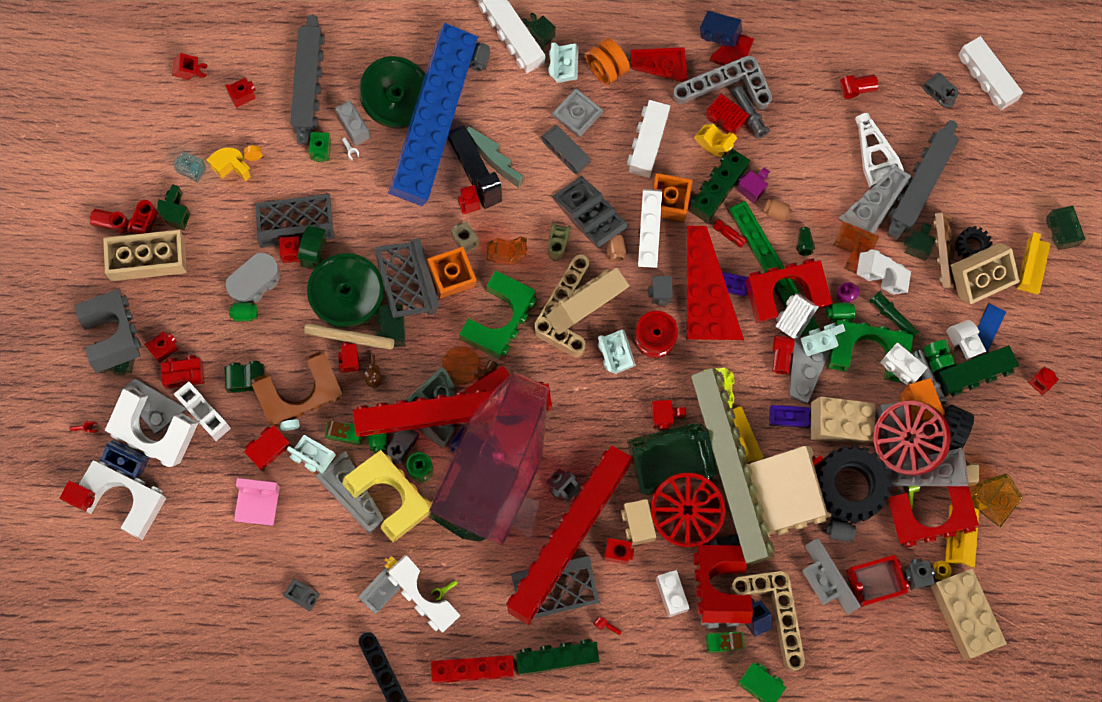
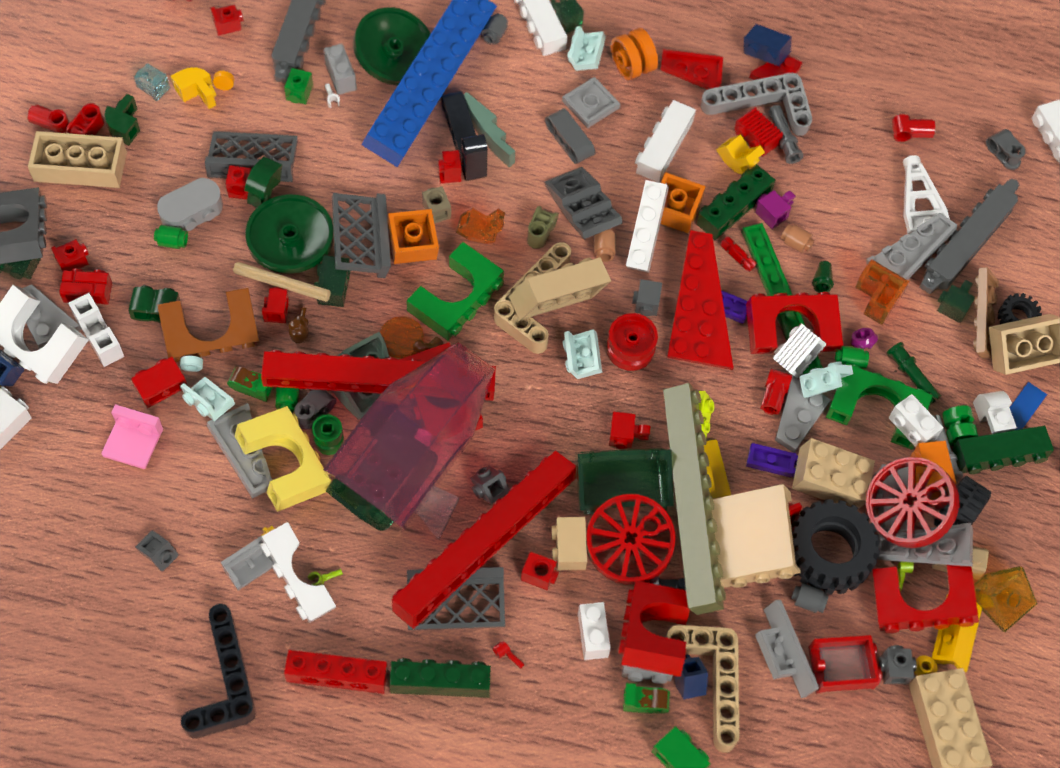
camera: 10 degrees right, 10 degrees down
(876, 266) = (900, 309): white arch -> none

